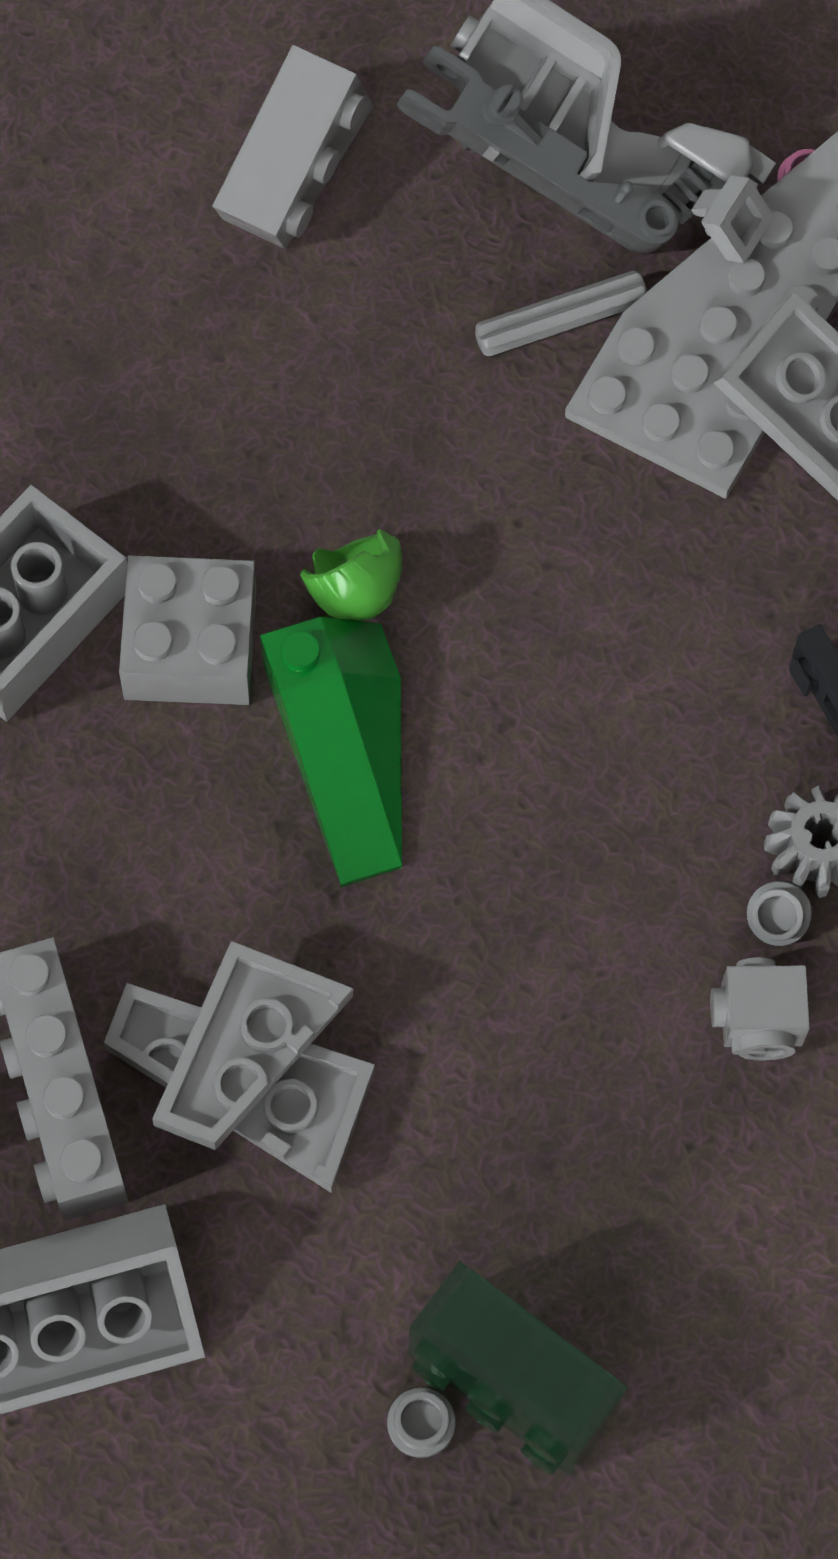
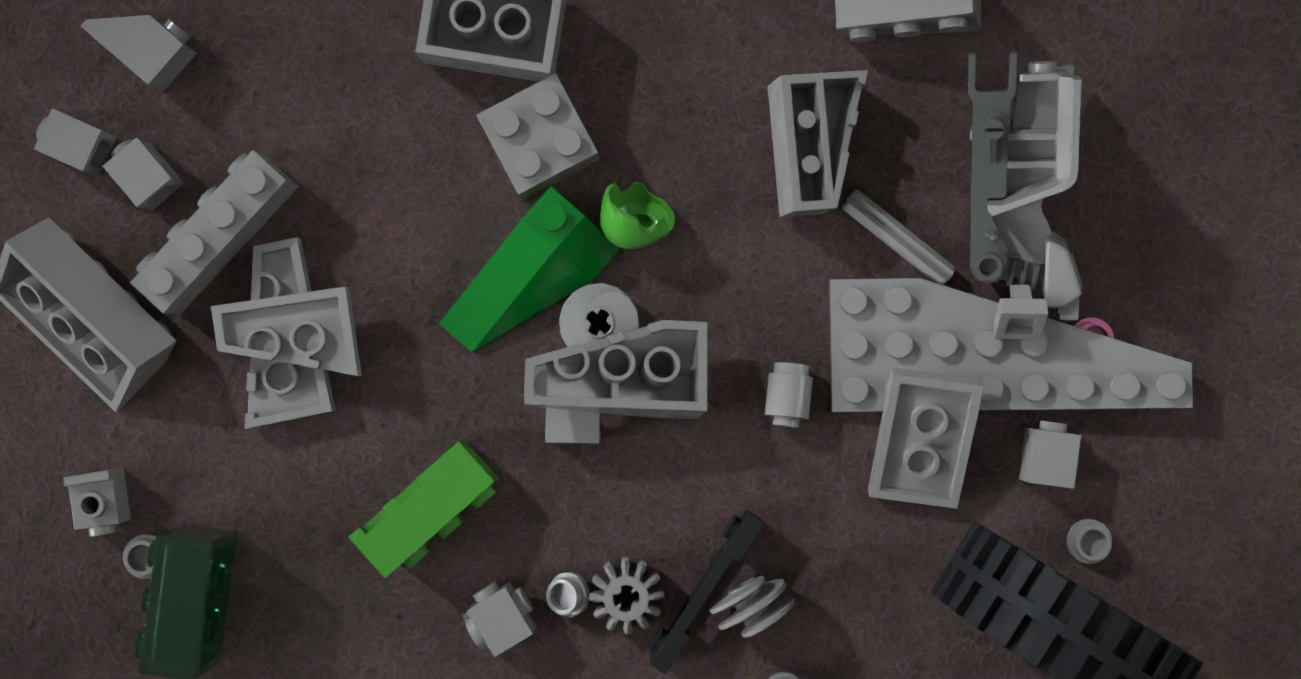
camera: 60 degrees right, 20 degrees up
(282, 1440) = (111, 493): none -> light grey brick
(386, 333) = (811, 137): none -> light grey wedge
(474, 663) = (596, 298): none -> light grey piece
(551, 665) = (630, 373): none -> light grey wedge
(561, 782) = (572, 426): none -> light grey panel
(570, 1013) = (425, 509): none -> bright green wedge
(677, 525) = (788, 394): none -> light grey brick

